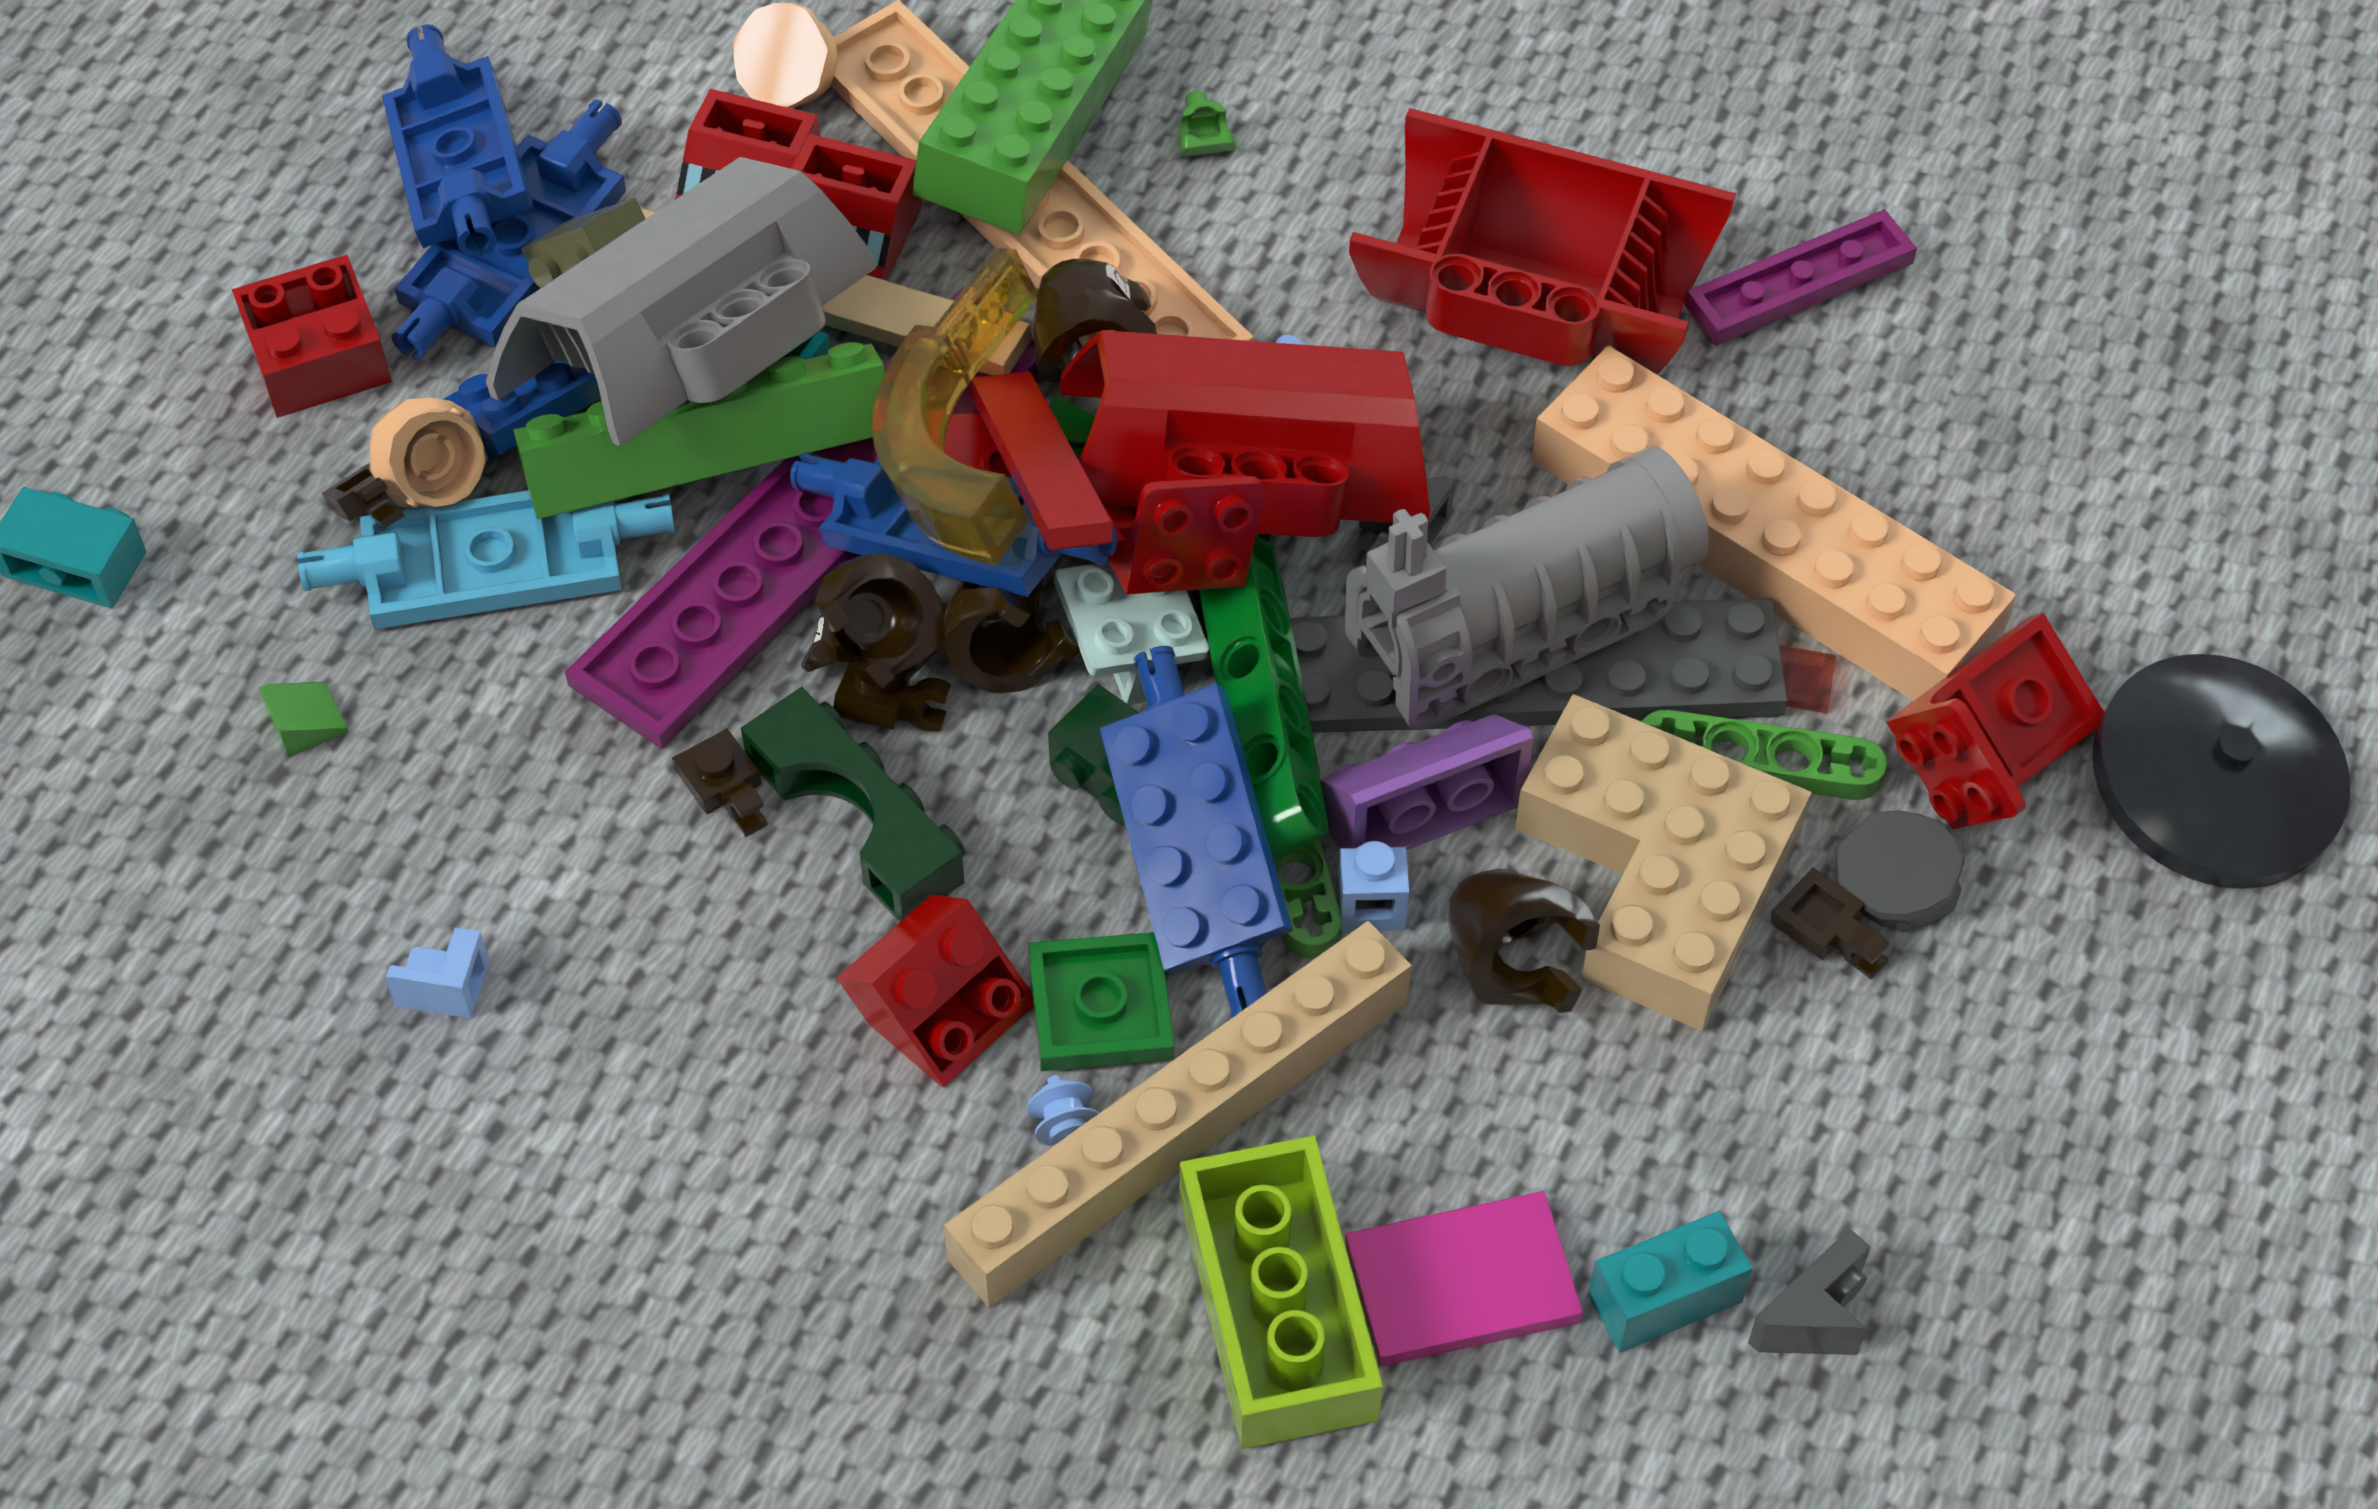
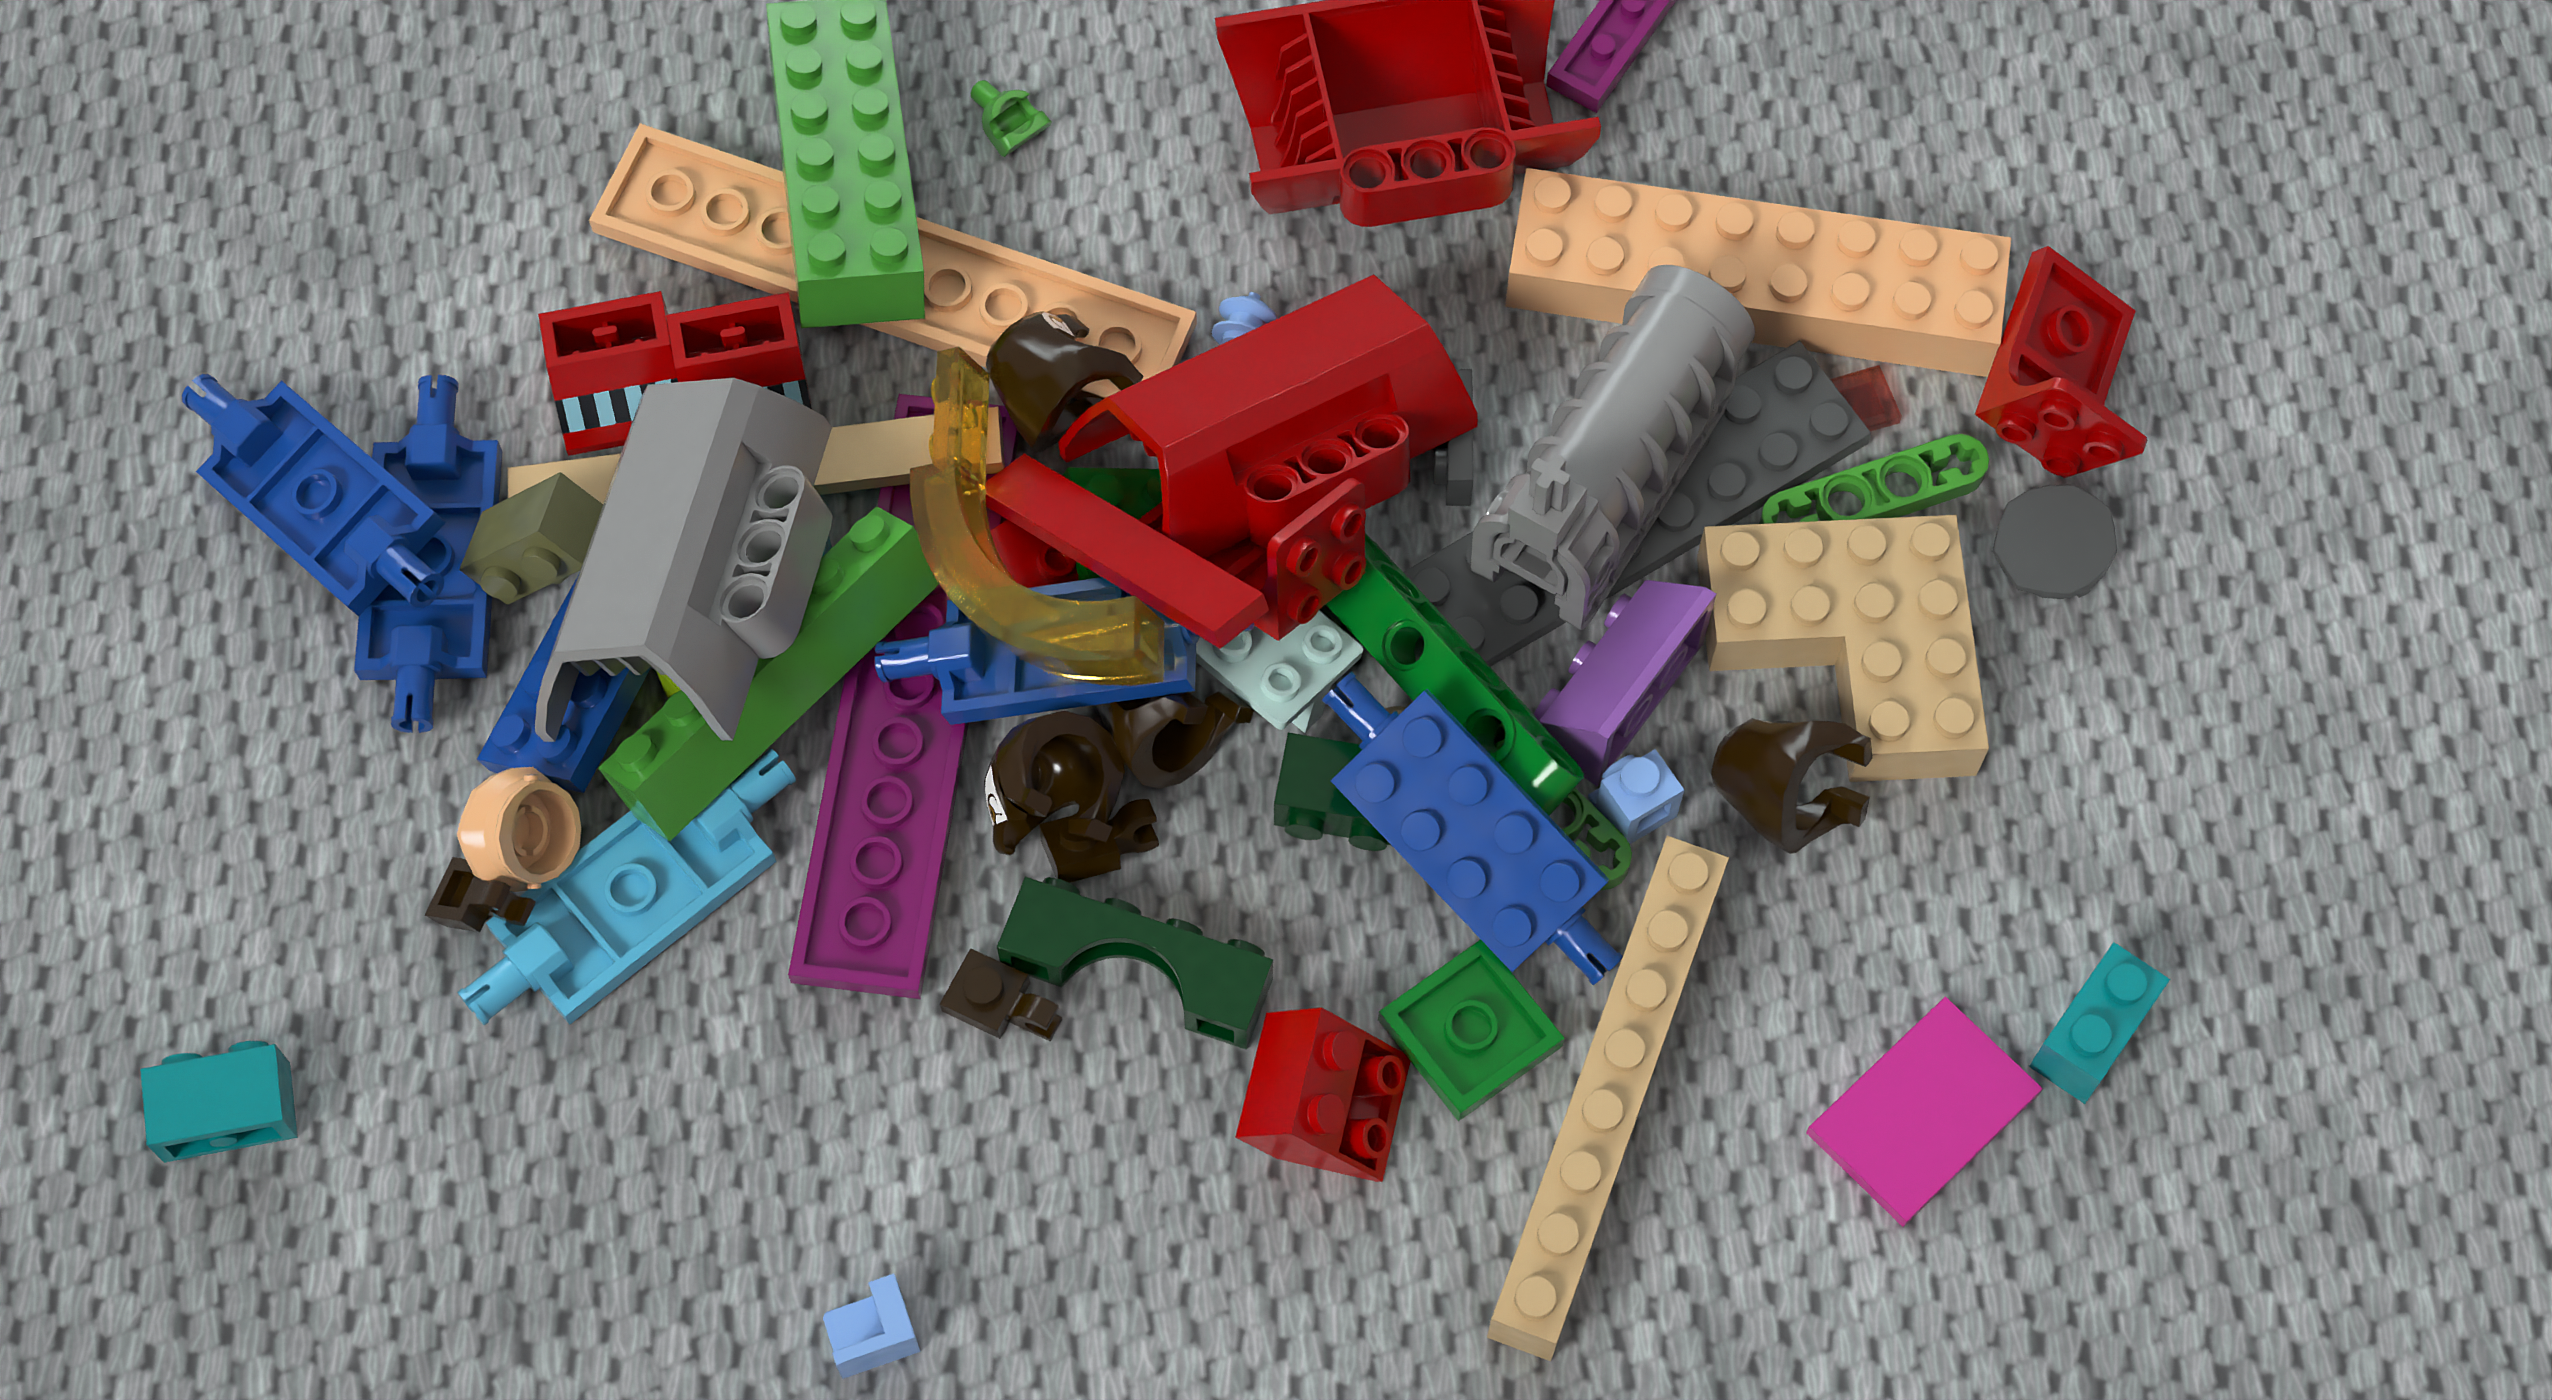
camera: 30 degrees left, 10 degrees up
(302, 714) = (562, 1146): bright green slope -> none
(312, 335) = (309, 760): red slope -> none
(784, 55) = (575, 240): light nougat hat -> none
(1062, 1108) = (1508, 1151): light blue wheel -> none
(1279, 1292) = (1797, 1213): lime brick -> none
(1811, 1310) = (2218, 983): dark grey slope -> none
(1826, 917) = (2018, 619): dark brown plate -> none
(2221, 771) = (2251, 311): black dish -> none

